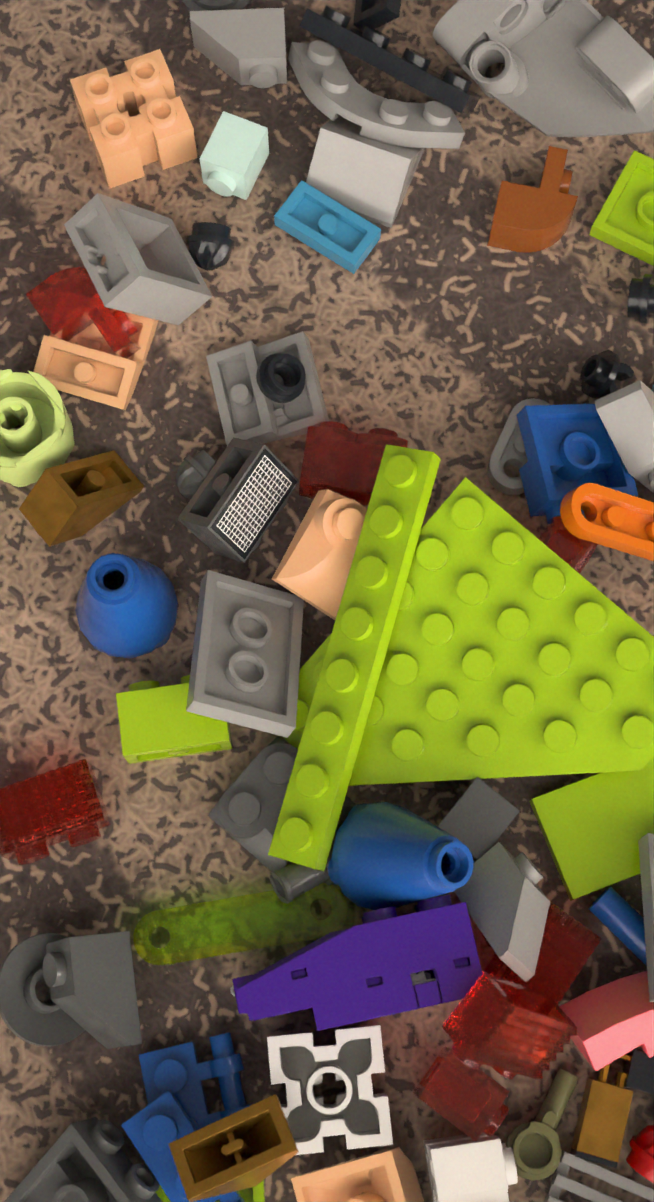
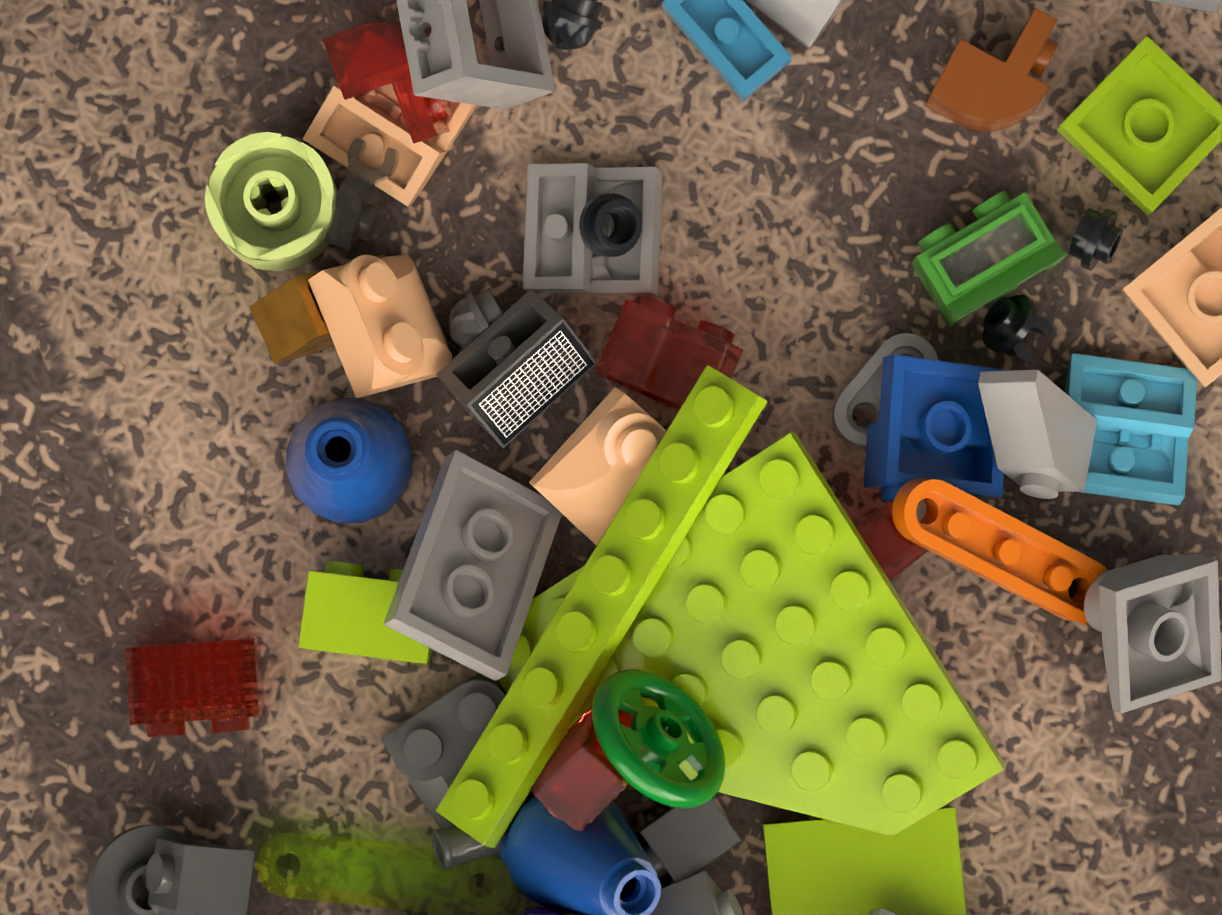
camera: 15 degrees right, 10 degrees up
(83, 421) = (354, 212): none -> clear smoke plate
(123, 491) = (381, 323): none -> light nougat slope
(387, 771) = (579, 775): none -> clear red brick
(433, 738) = (658, 738): none -> green plate
(567, 331) = (985, 257): none -> bright green window

